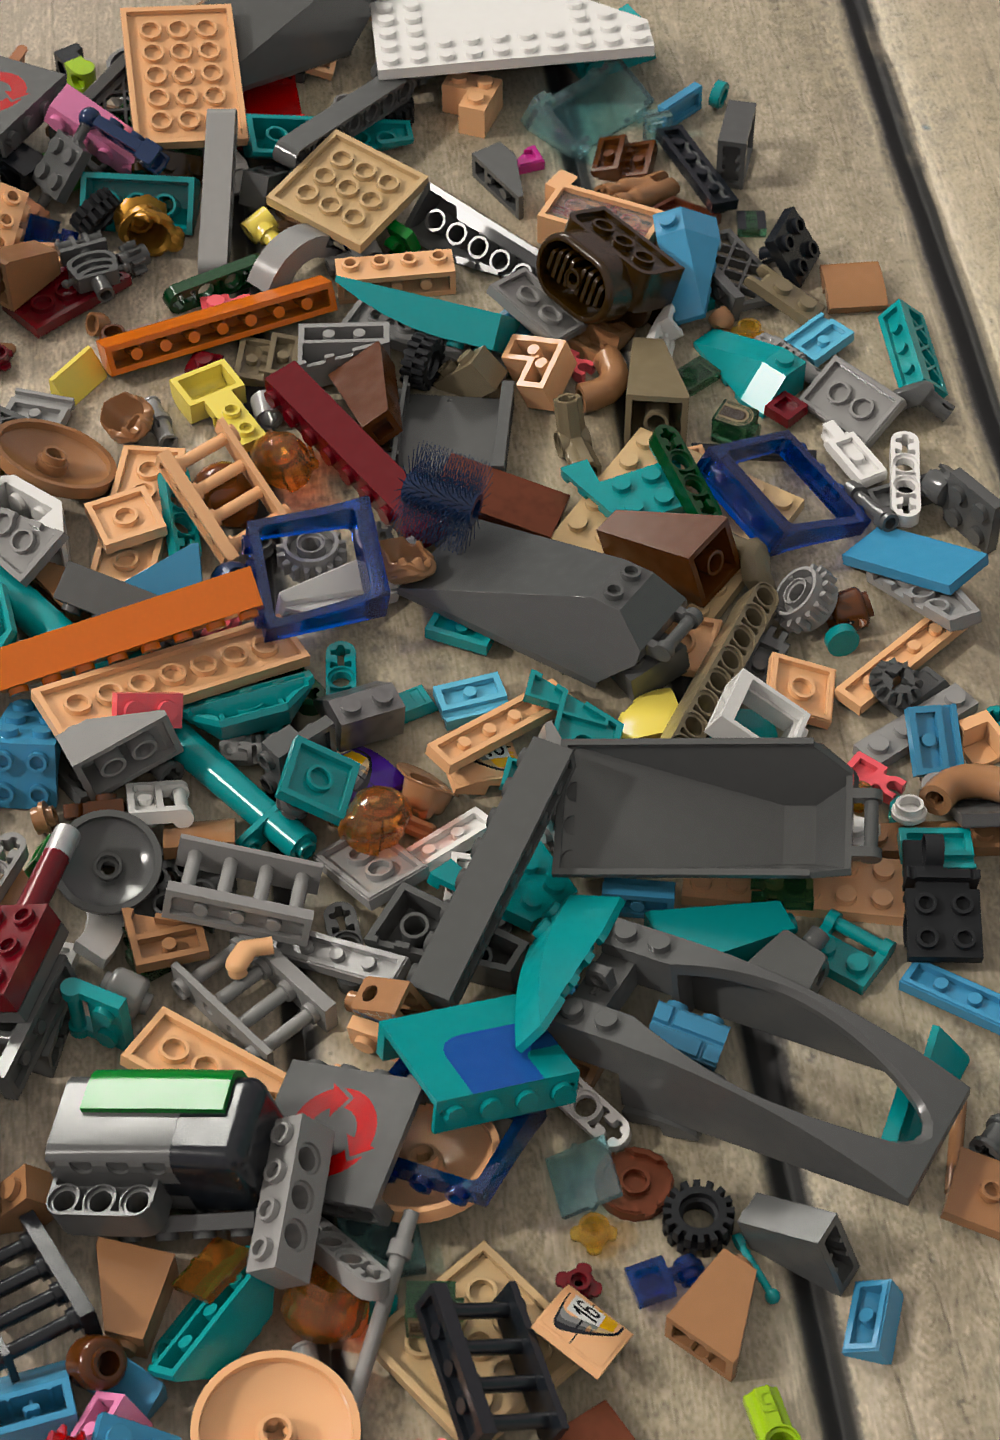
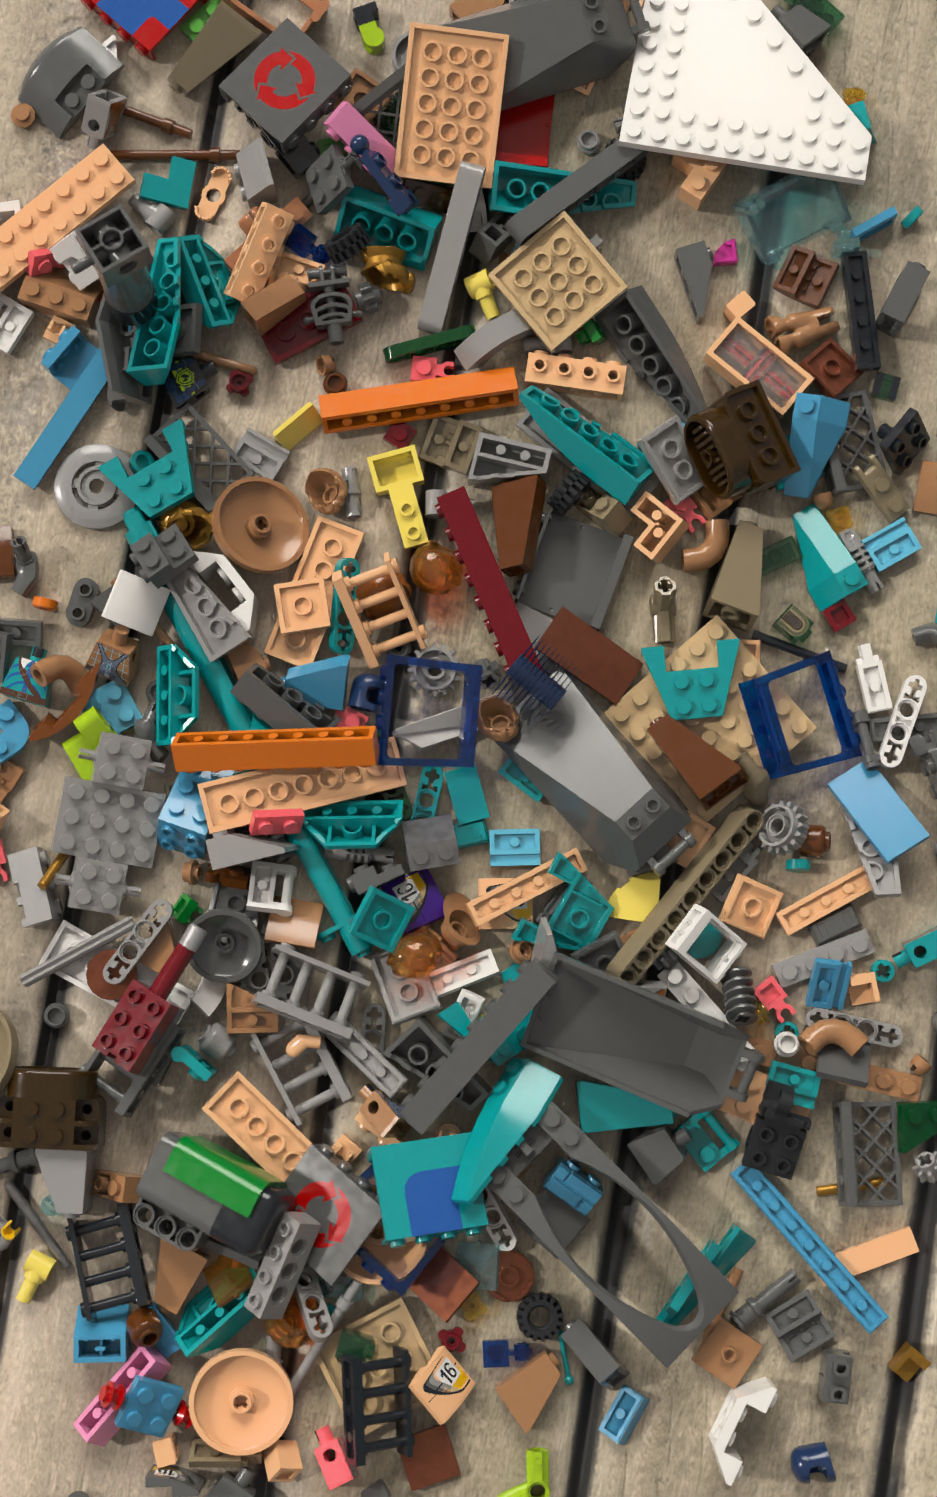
camera: 15 degrees right, 35 degrees up
(392, 661) = (466, 795): none -> teal piece
(543, 1210) = (445, 1285): none -> copper tile
(666, 328) = (768, 508): white slope -> none
(670, 447) = (734, 692): dark green beam -> none
(852, 400) = (891, 626): light grey tile -> none
(882, 679) = (809, 926): dark grey gear -> none

